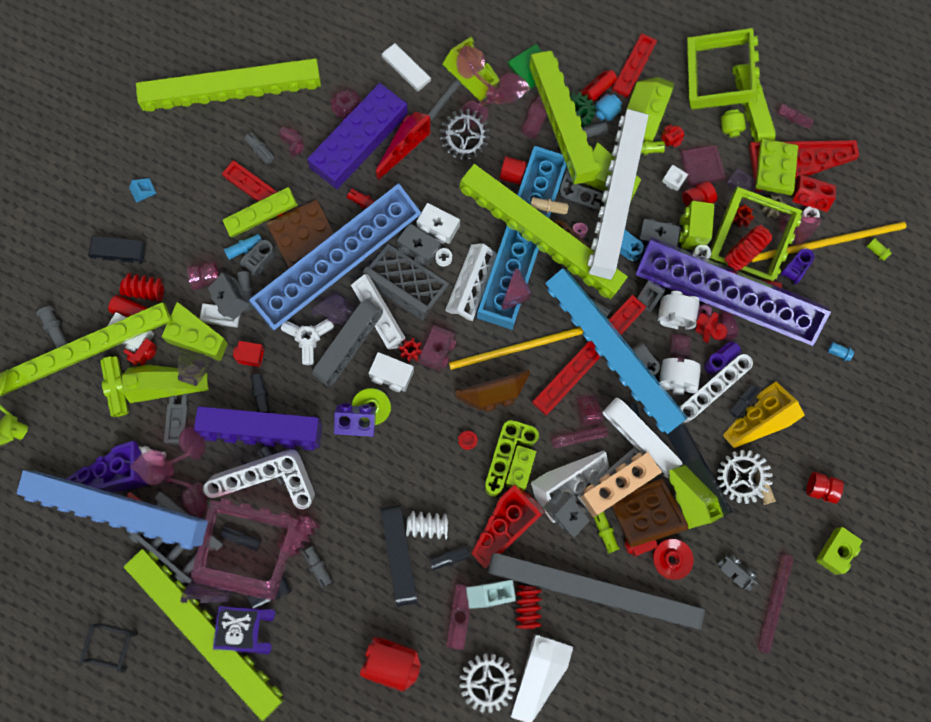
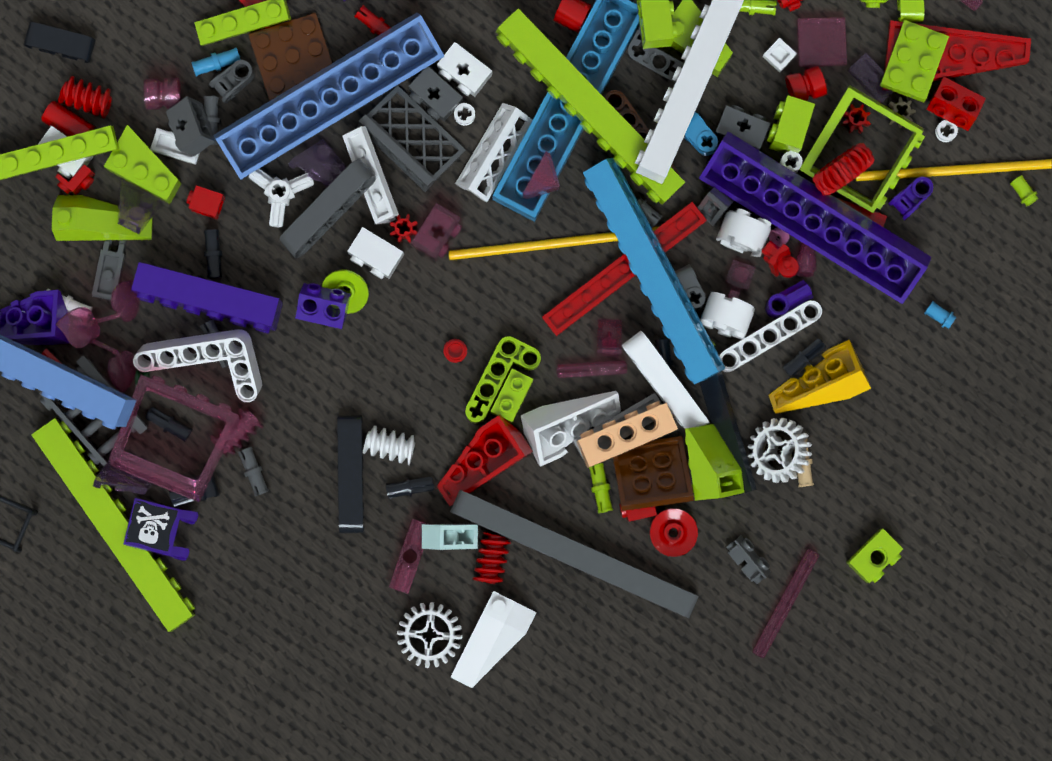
camera: 10 degrees right, 10 degrees up
(113, 386) = (39, 216): lime piece -> none
(391, 664) = (322, 595): red cylinder -> none
(494, 392) = (497, 298): reddish brown wedge -> none
(549, 206) = (605, 73): tan axle -> none
(567, 513) = (556, 459): dark grey brick -> none
(582, 227) = (648, 108): bright pink hinge -> none
(804, 230) = (931, 149): clear pink slope -> none
(828, 489) = (876, 479): red wheel -> none

